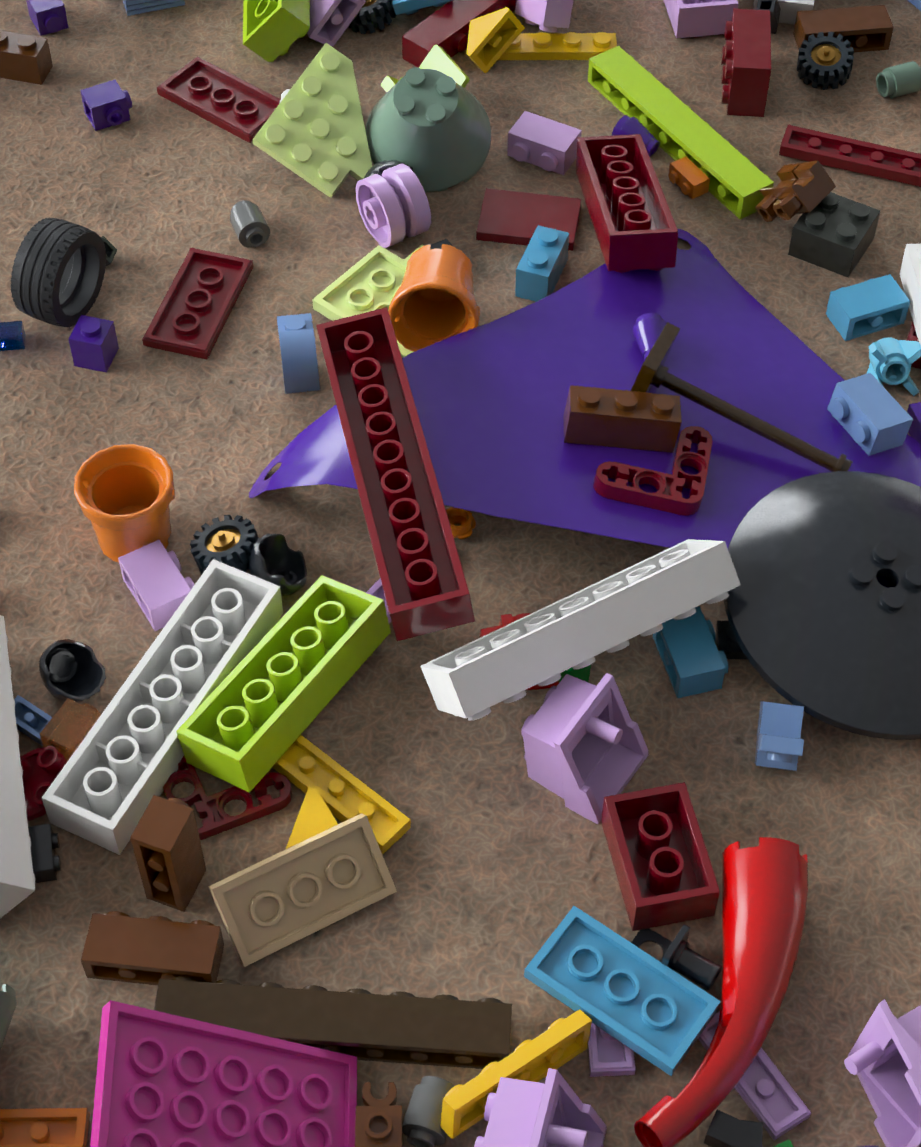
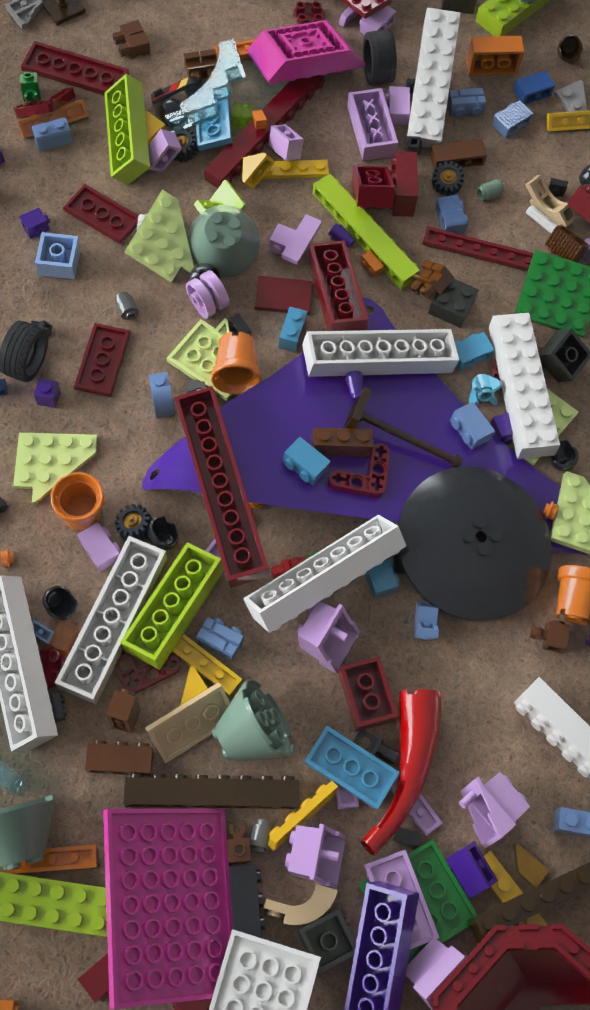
camera: 10 degrees left, 15 degrees up
(68, 435) = (48, 457): none -> yellowish green wing
(139, 147) = (58, 255): none -> light blue brick
(372, 747) = (220, 638): none -> medium blue brick
(422, 896) = (253, 726): none -> sand green cone
(553, 443) = (305, 461): none -> dark azure brick
(563, 131) = (301, 239): none -> lavender tile
(692, 63) = (372, 187): none -> dark red brick
(699, 291) = (380, 352): none -> white brick
(831, 108) = (451, 214): none -> medium blue brick

